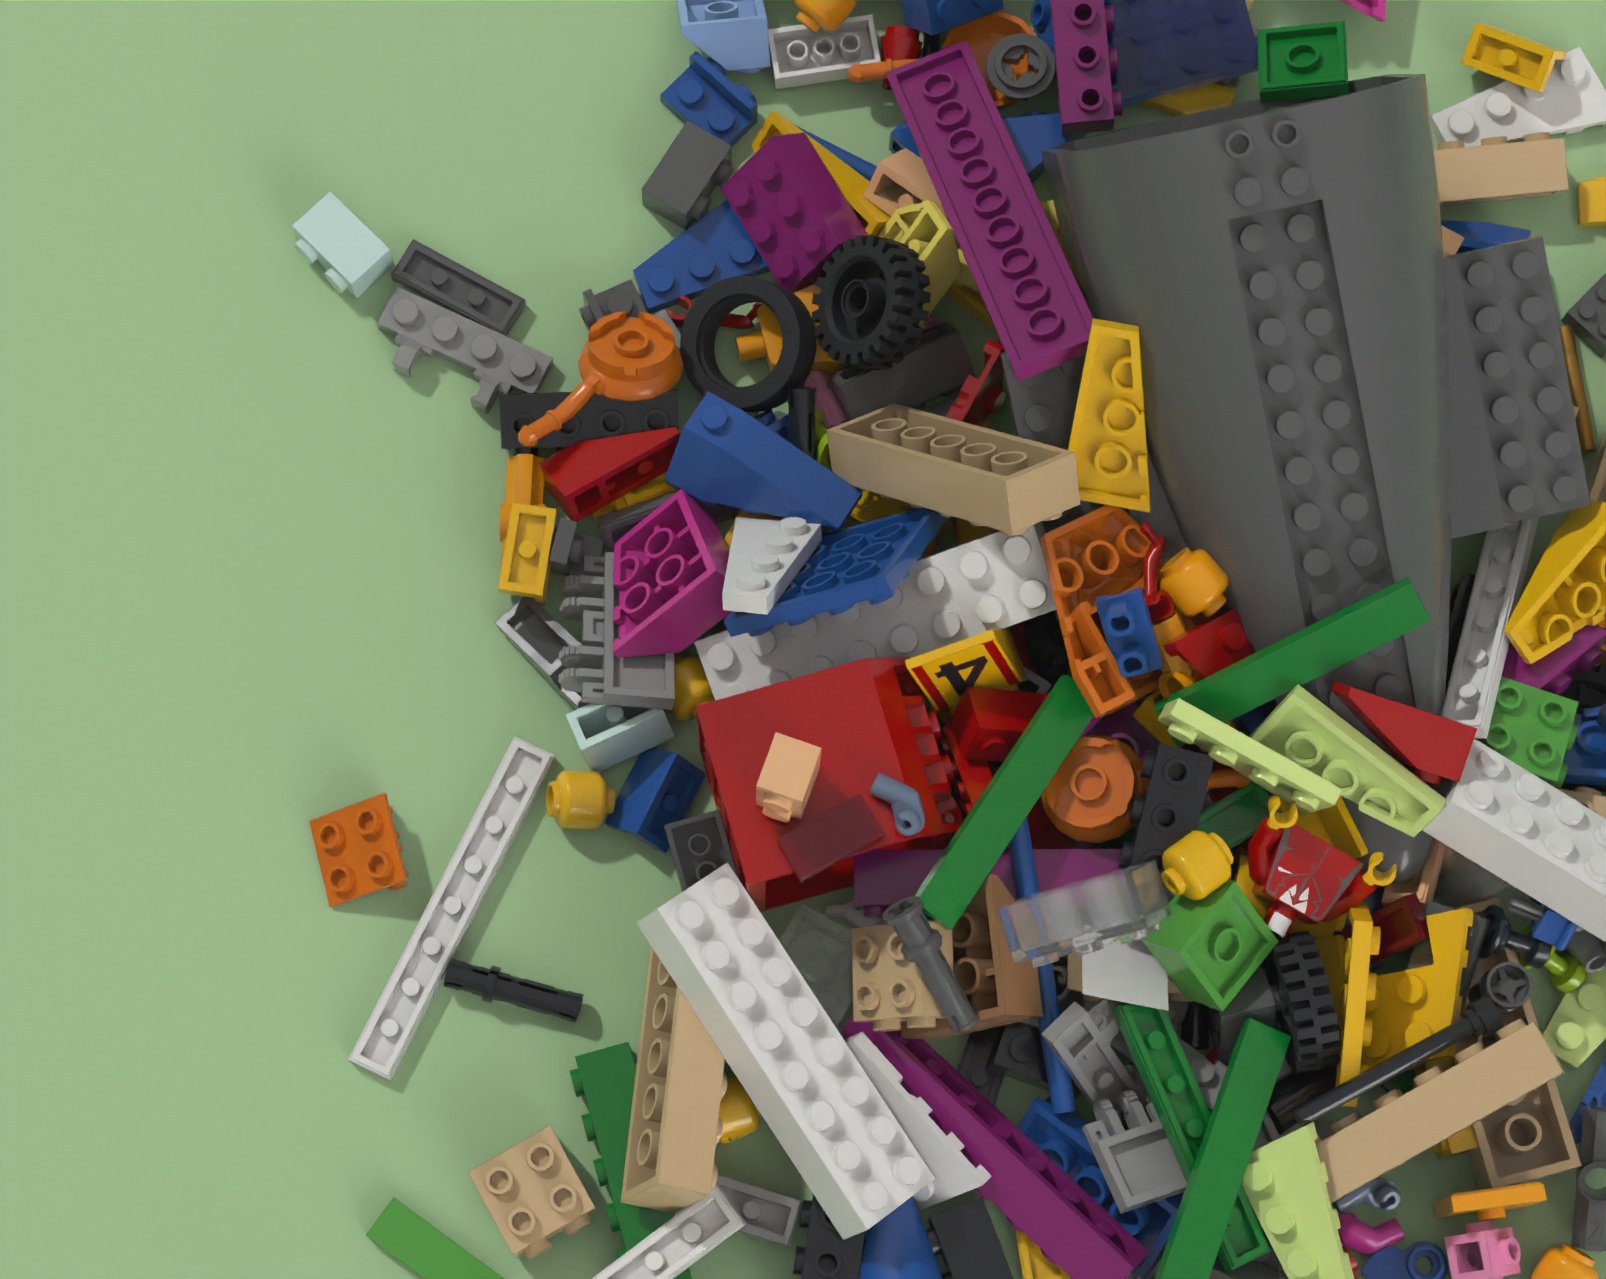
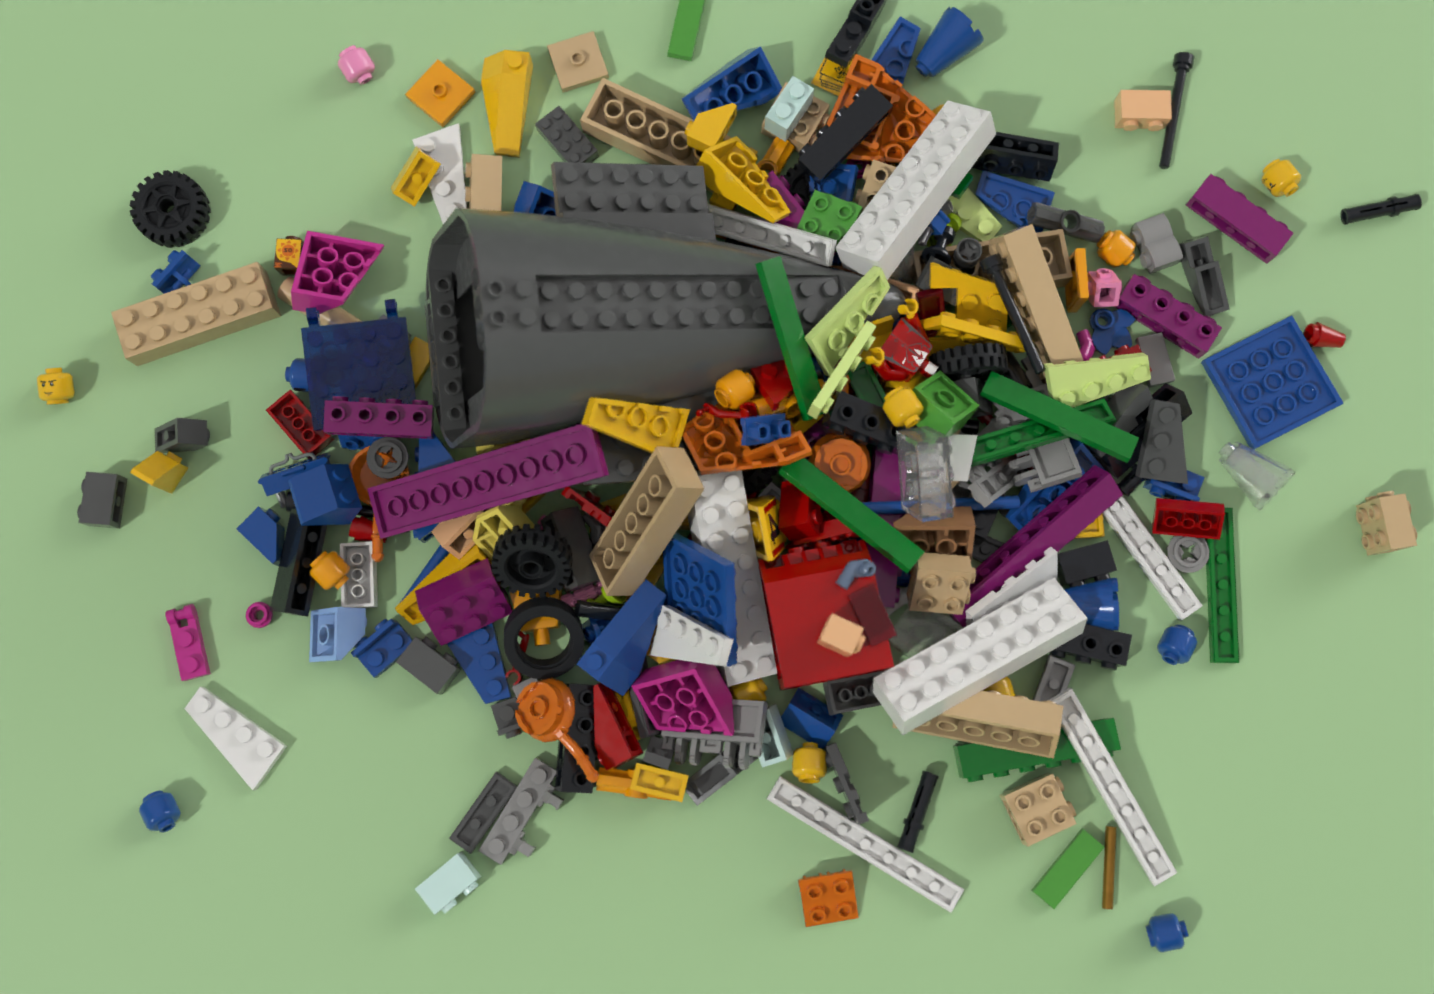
camera: 80 degrees left, 5 degrees up
(549, 860) = (843, 784): none -> dark grey wing
(923, 946) = (937, 568): dark grey pin -> none
(1302, 61) = (411, 290): green tile -> none
(1414, 736) = (838, 272): red slope -> none

